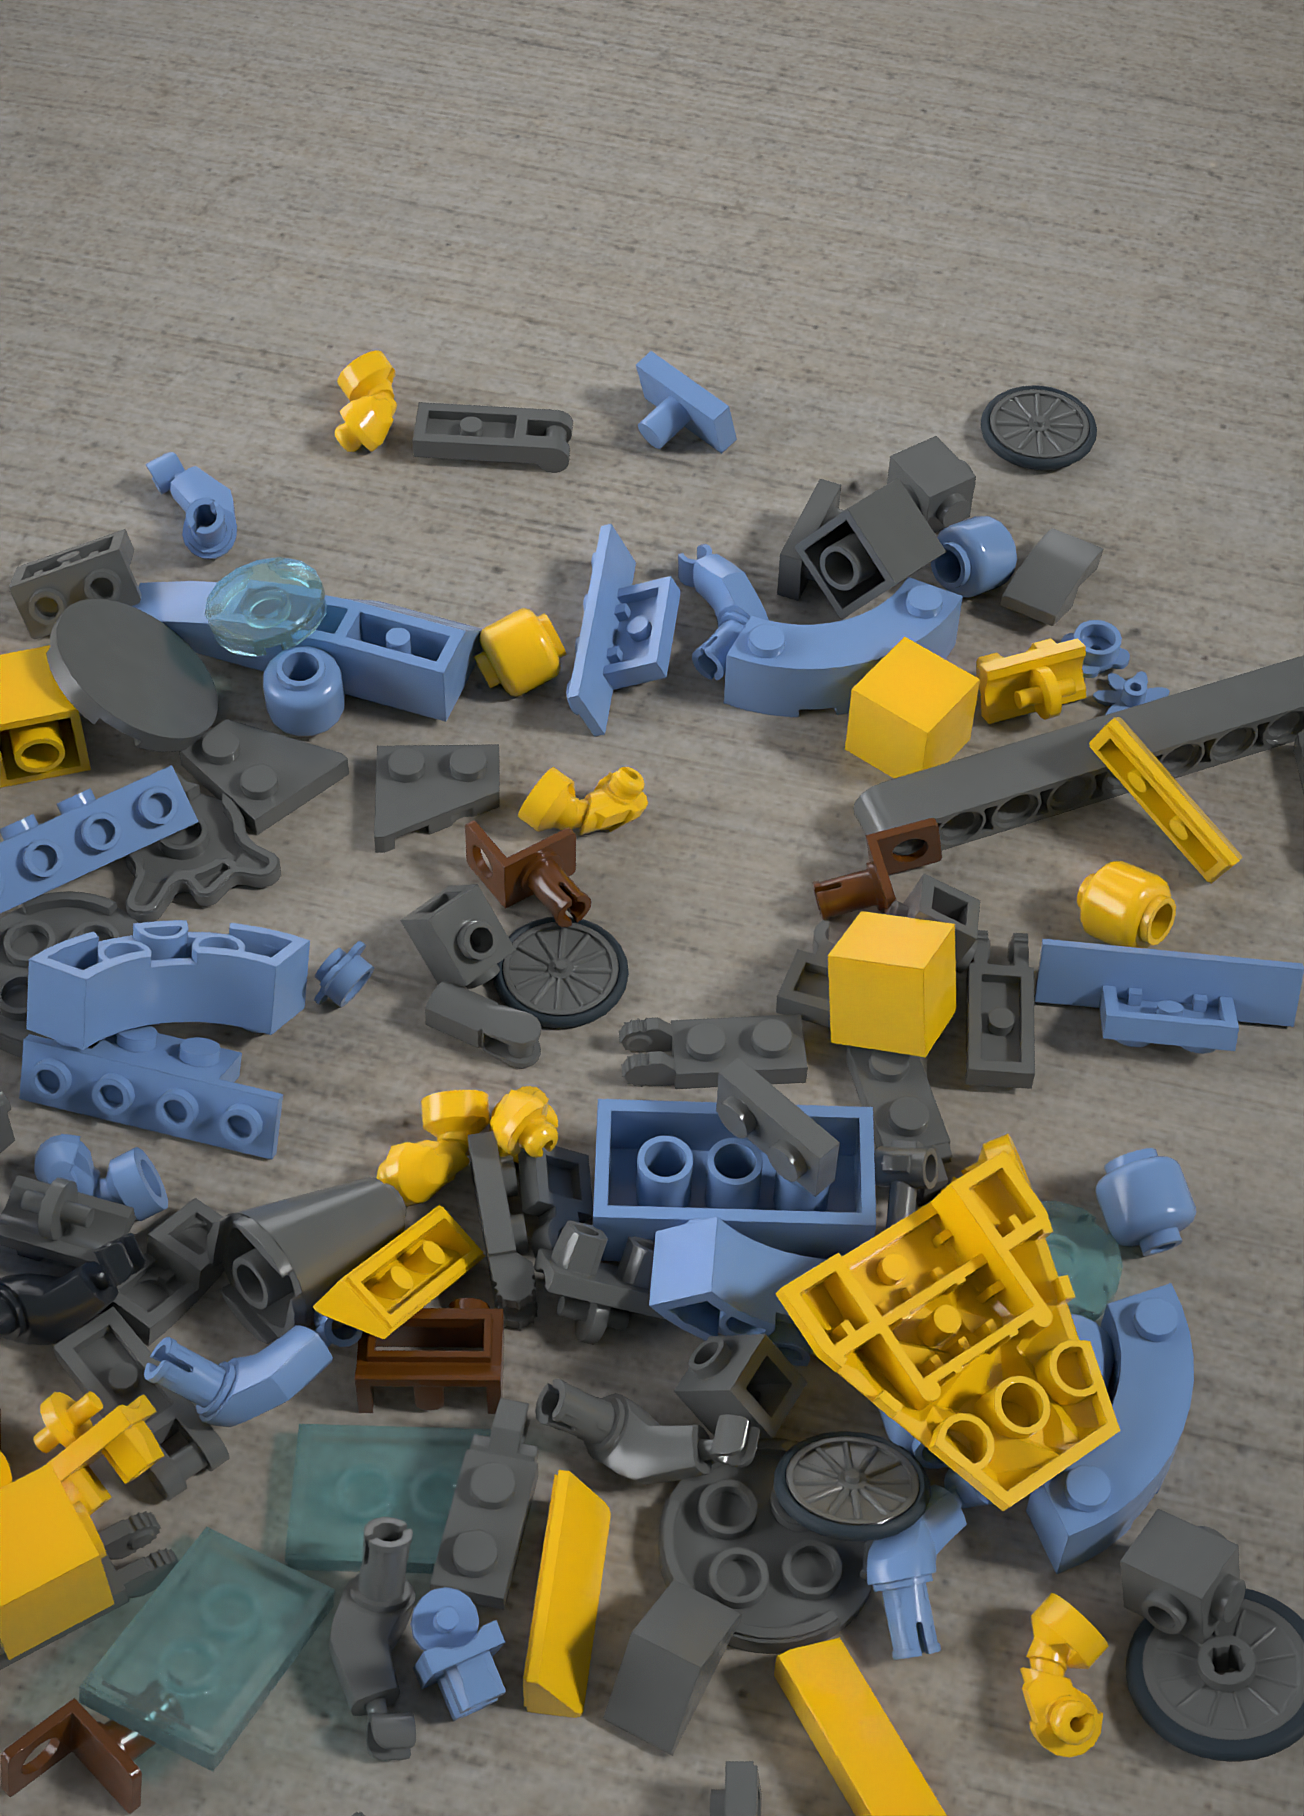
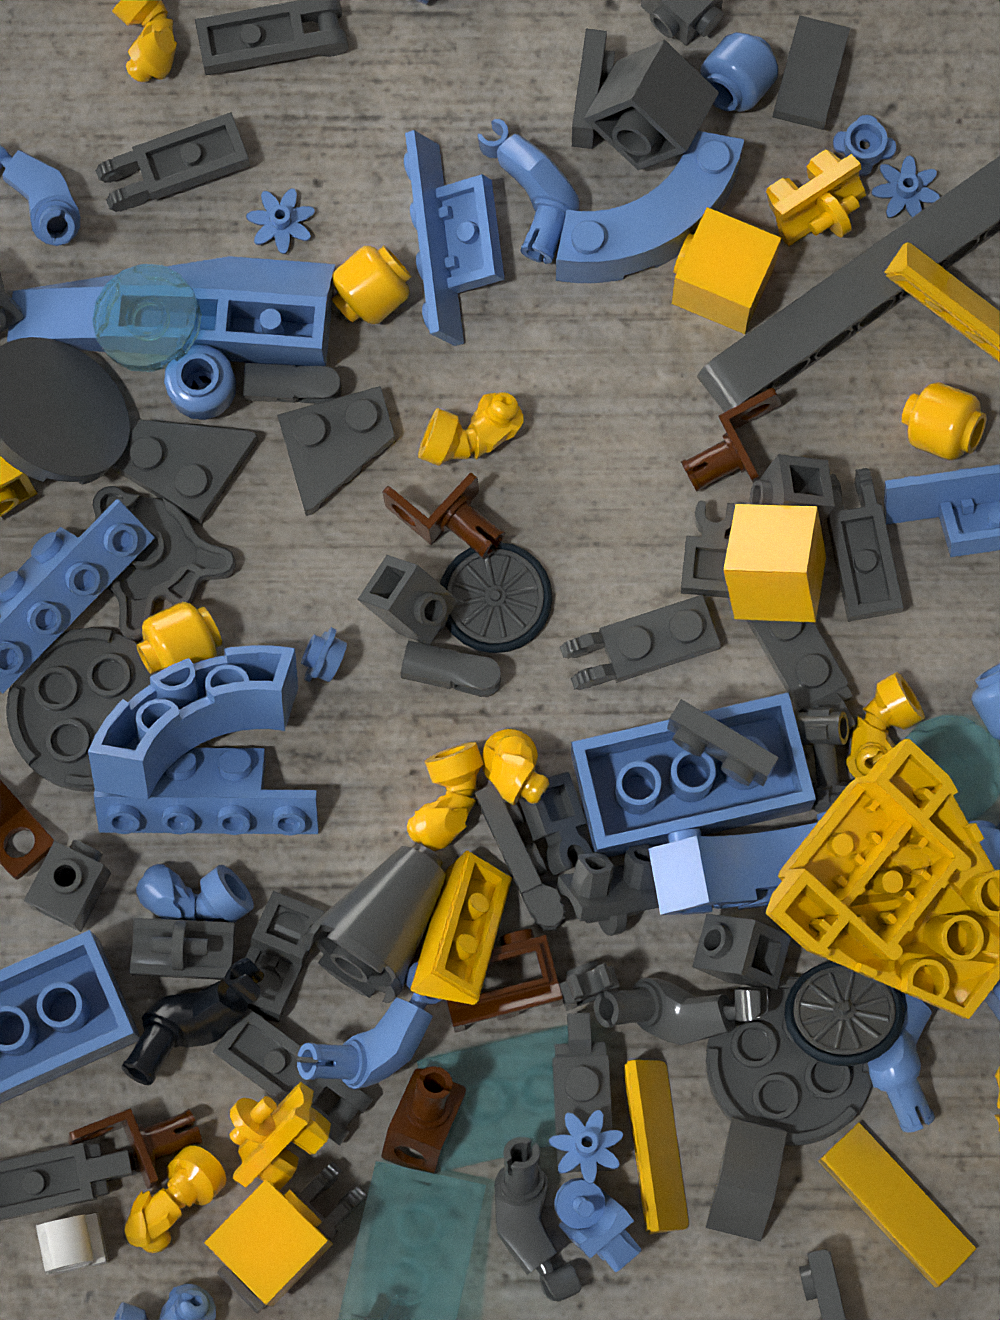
camera: 10 degrees left, 25 degrees up
(188, 900) = (178, 635): none -> yellow head
(281, 1477) = (423, 1119): none -> reddish brown bracket
(350, 514) = (176, 162): none -> dark grey hinge
(400, 721) = (290, 383): none -> dark grey bar
(446, 588) = (281, 227): none -> medium blue plant
(474, 1550) = (582, 1155): none -> medium blue plant
(534, 1368) = (586, 983): none -> dark grey plate

